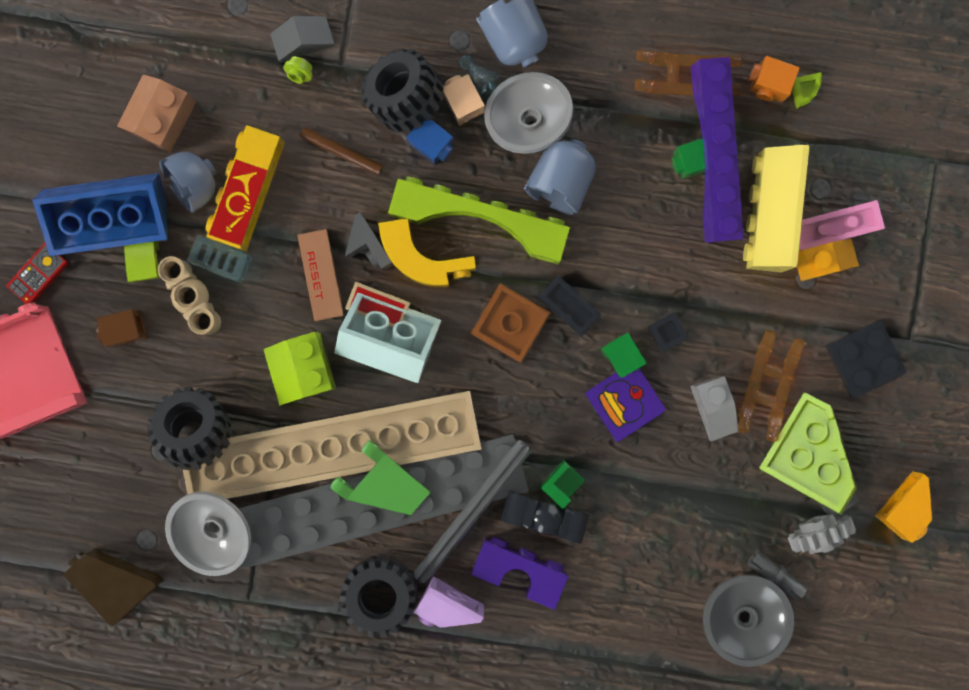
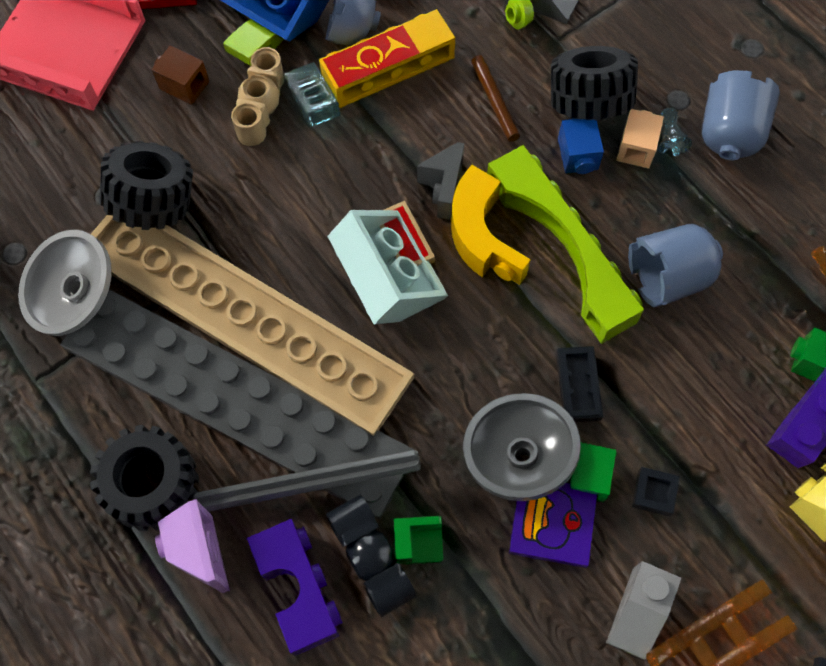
camera: 40 degrees right, 20 degrees down
(299, 368) = (288, 226): lime slope -> none
(320, 275) = (381, 171): nougat tile -> none
(384, 486) = (255, 382): bright green flag -> none
(510, 323) = (508, 353): dark orange tile -> none
(524, 100) = (691, 189): light grey dish -> none
(553, 374) = (519, 427): none -> dark grey dish

